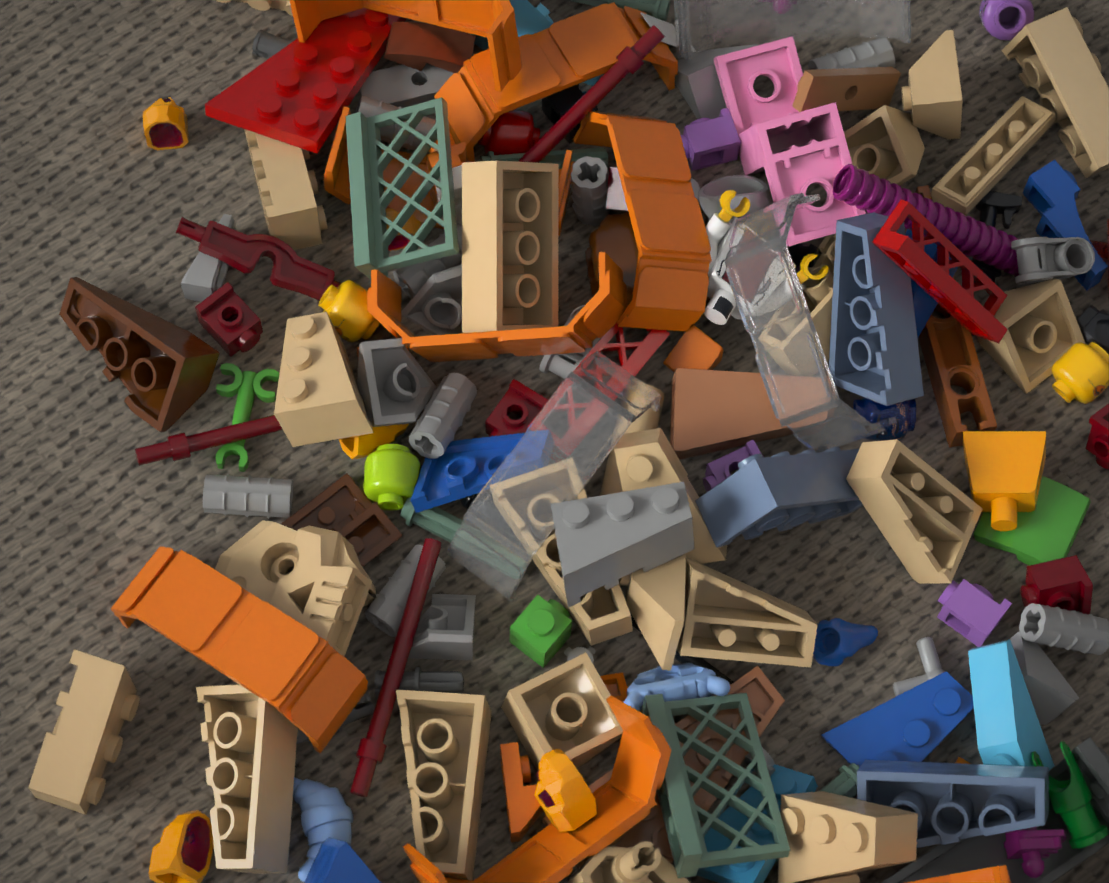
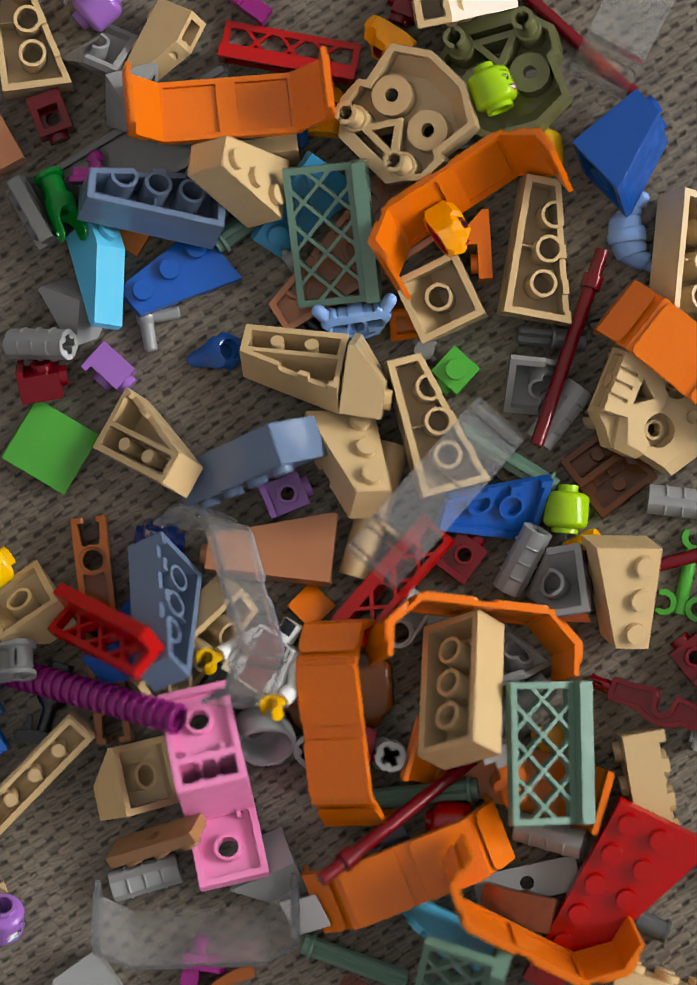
camera: 170 degrees left, 20 degrees up
(348, 311) = (599, 660): yellow head -> none
(620, 534) = (394, 415): light grey wedge -> none
(711, 141) = (279, 807): medium lavender brick -> none
(935, 90) = (78, 837): tan slope -> none
(1005, 472) = (69, 476): light orange torso -> none

